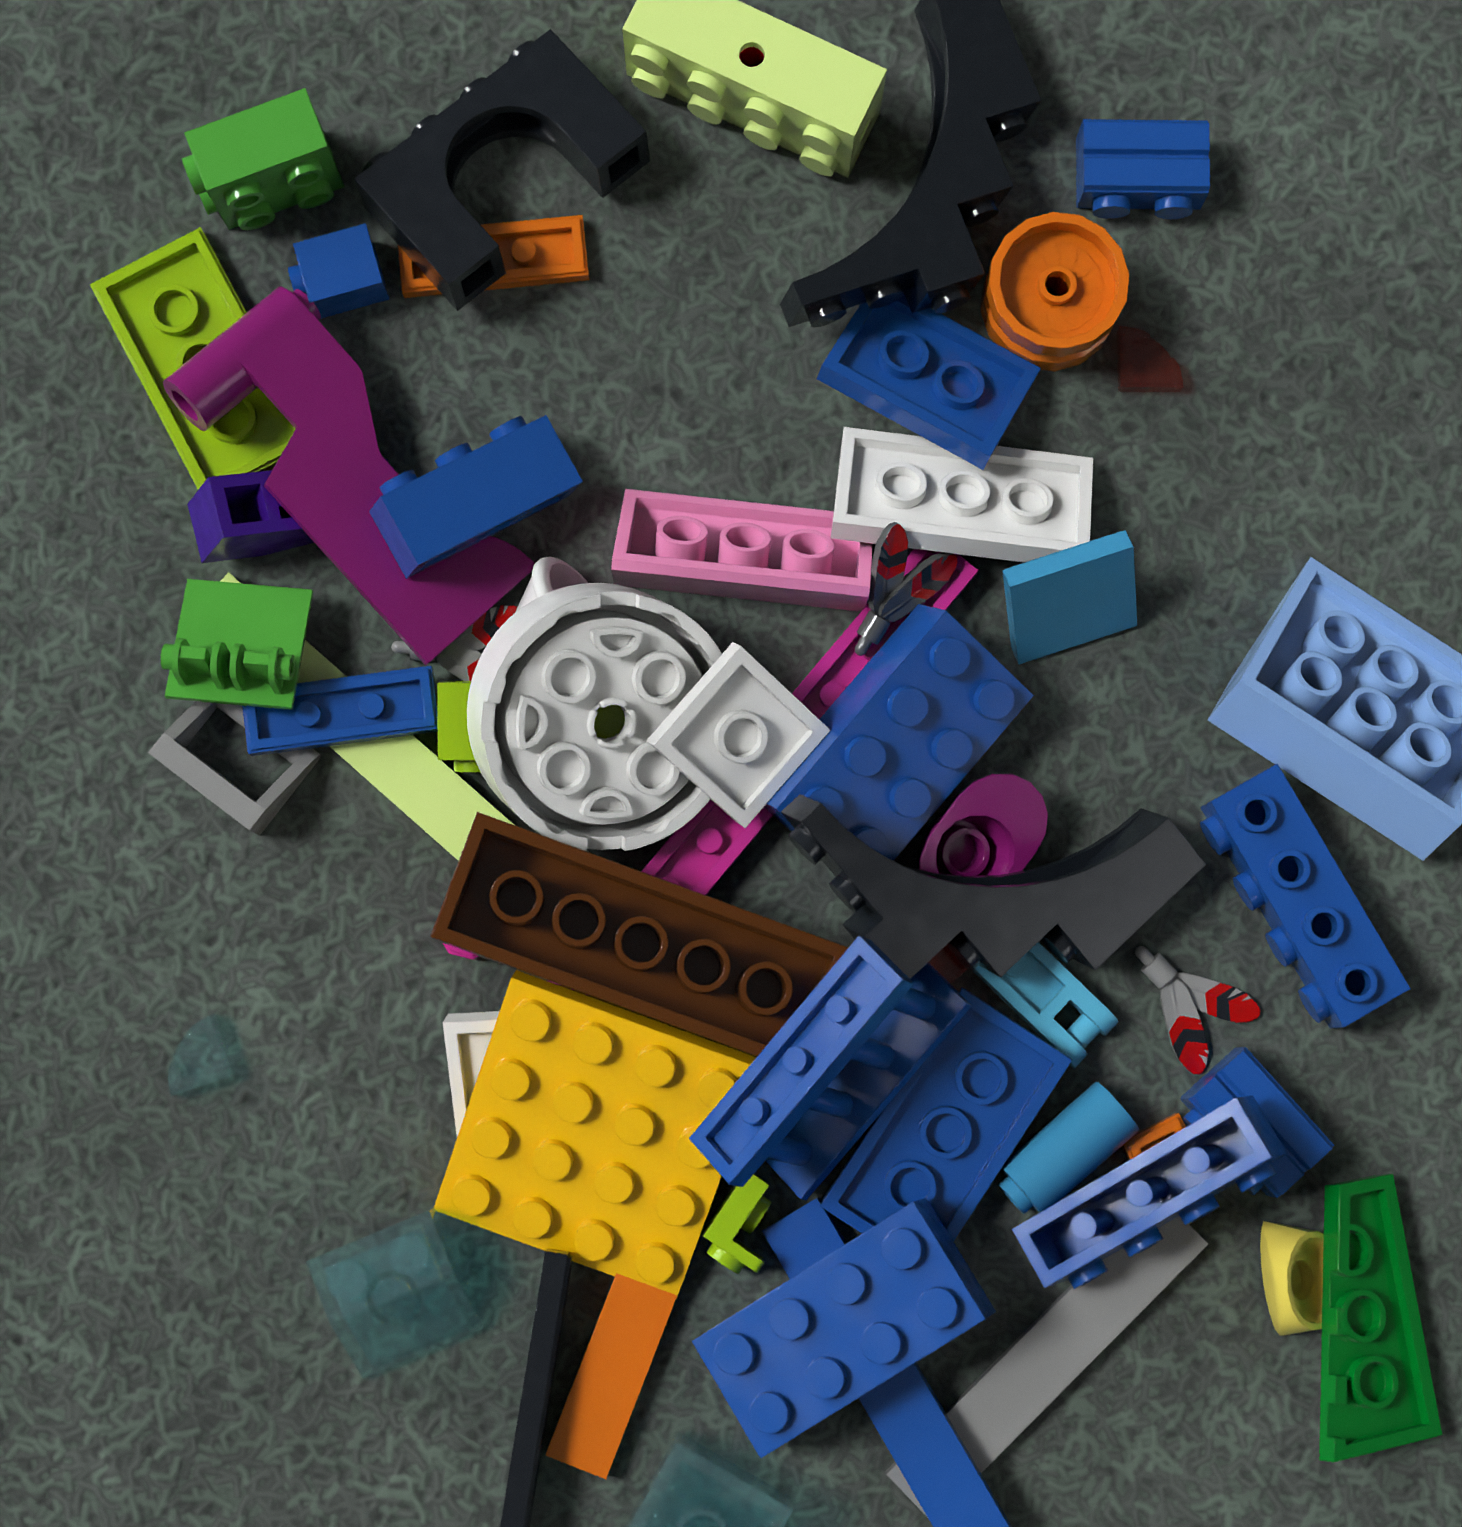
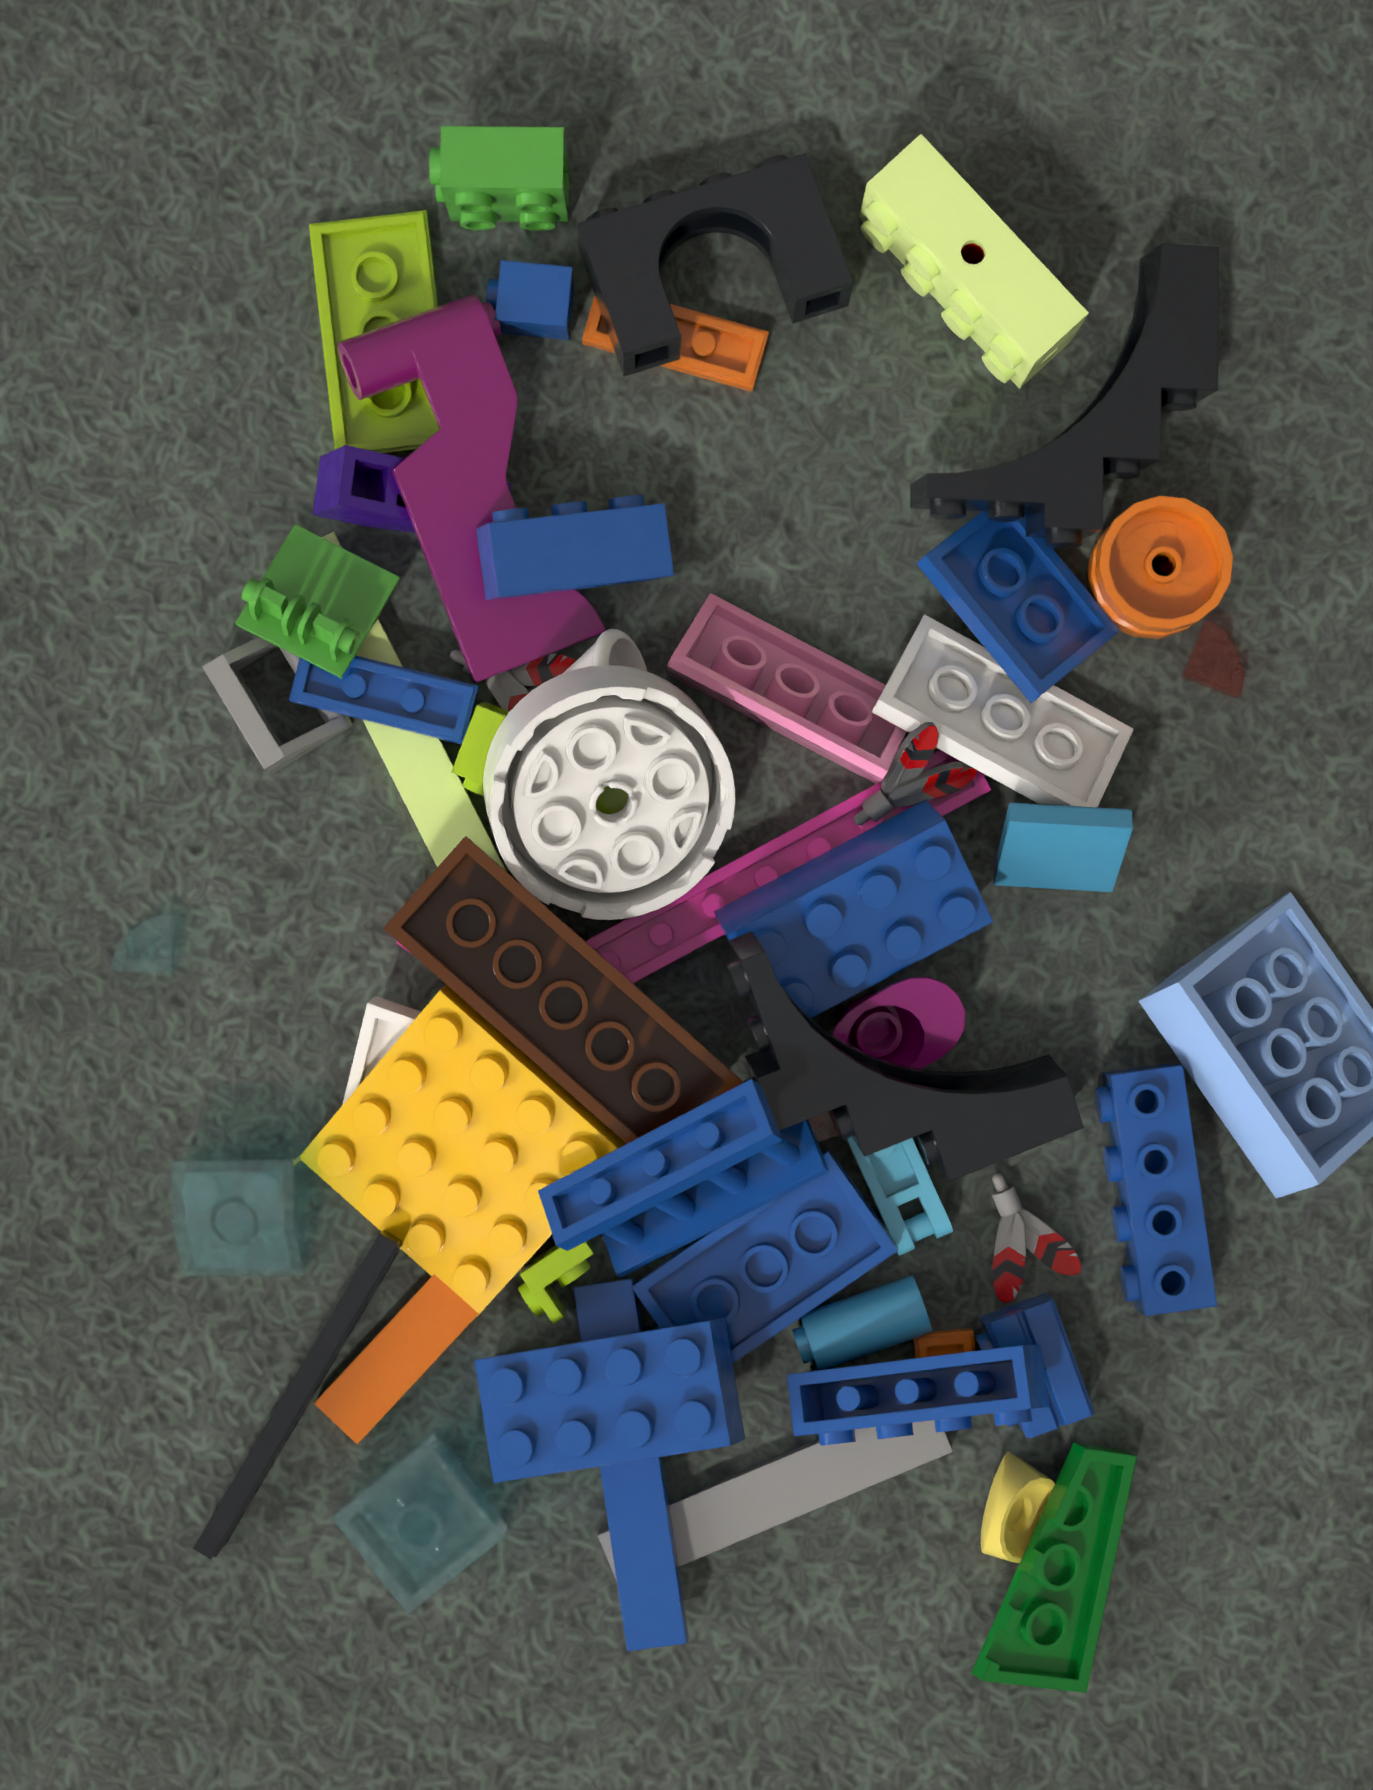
camera: 25 degrees right, 5 degrees up
(738, 734) = (719, 856): white plate -> none
(1142, 166) = (1285, 484): blue brick -> none

